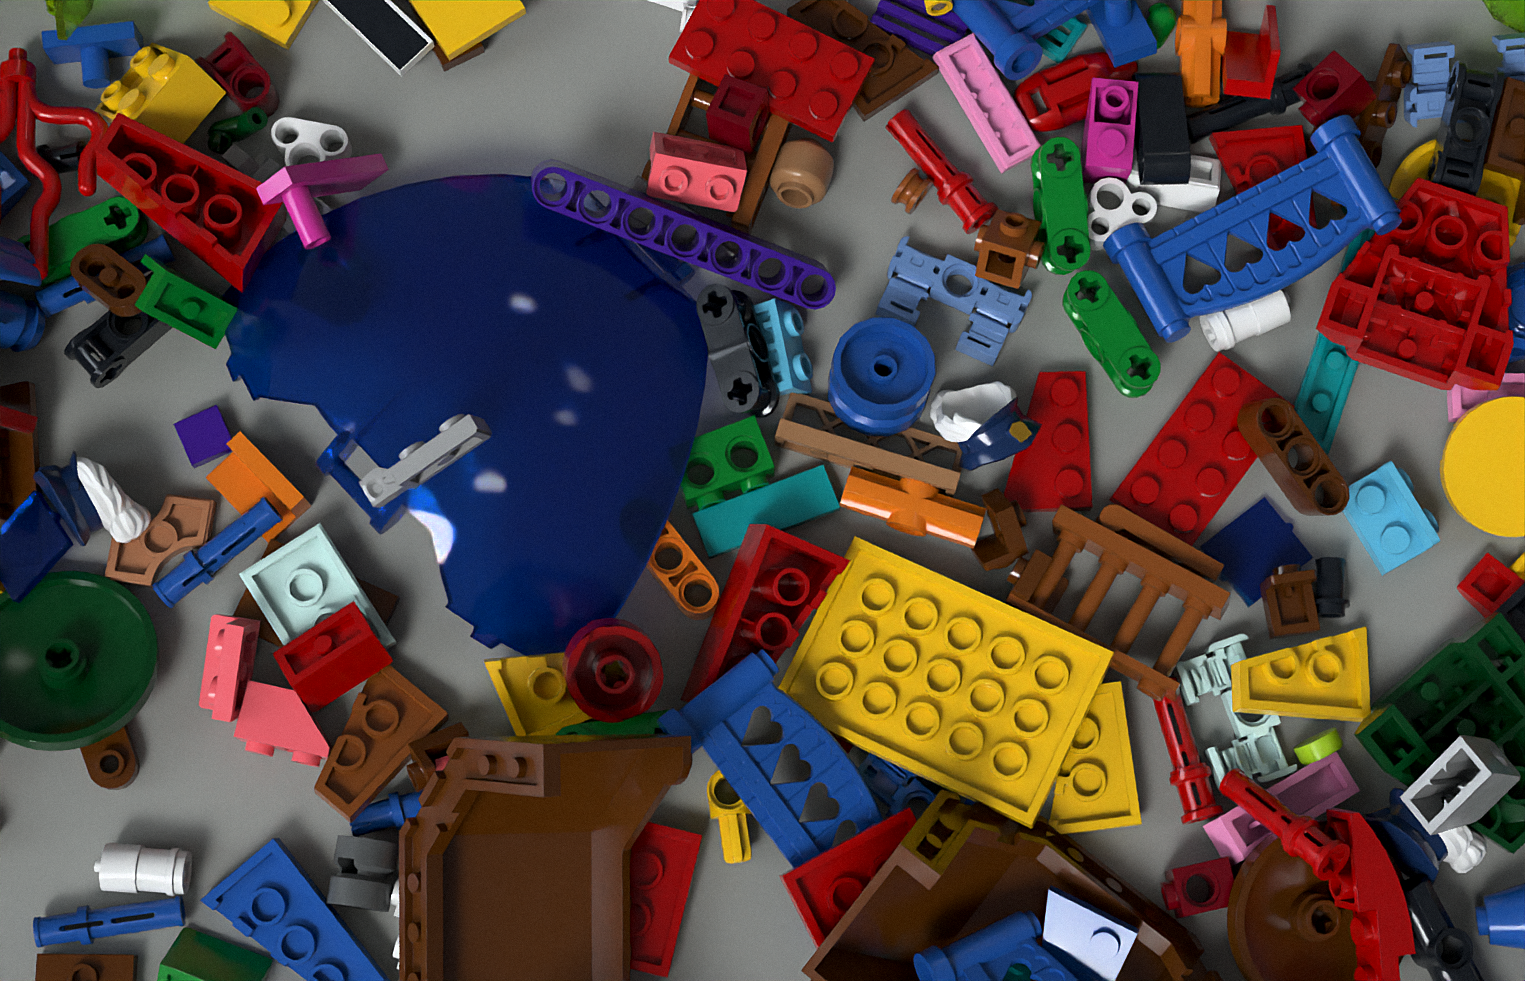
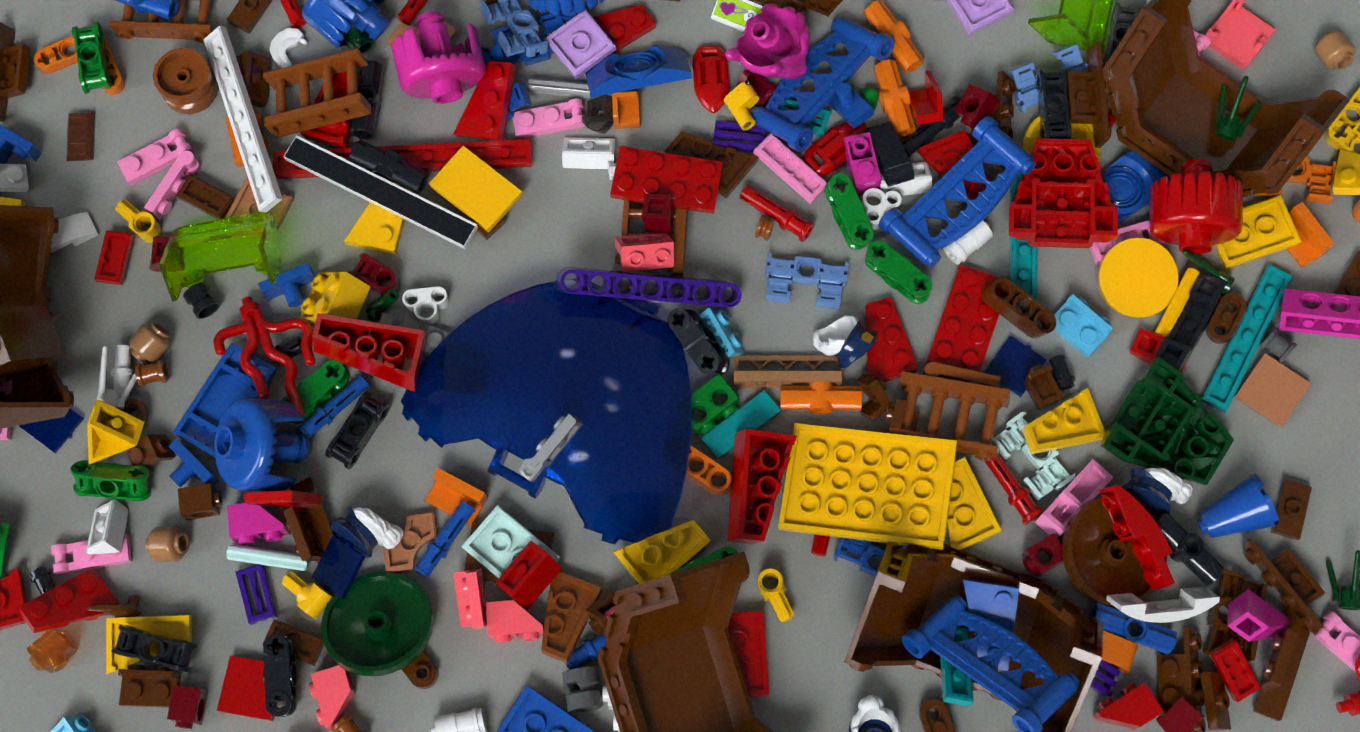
camera: 10 degrees left, 5 degrees down
(115, 281) = (342, 406): reddish brown plate -> none
(185, 303) = (386, 407): green panel -> none
(204, 436) = (417, 478): dark purple tile -> none
(301, 183) = (434, 319): dark pink piece -> none
(624, 694) = (694, 520): red brick -> none
(718, 725) = (755, 541): blue piece -> none
(801, 173) = (701, 236): medium nougat head -> none
(835, 878) = (845, 609): red wing -> none
(881, 376) = (781, 332): blue wheel -> none
(1008, 248) = (827, 242): dark orange brick -> none
(1298, 834) = (1089, 506): red pin -> none
(1318, 746) = (1083, 459): lime tile -> none
(1470, 776) = (1170, 448): light grey torso -> none

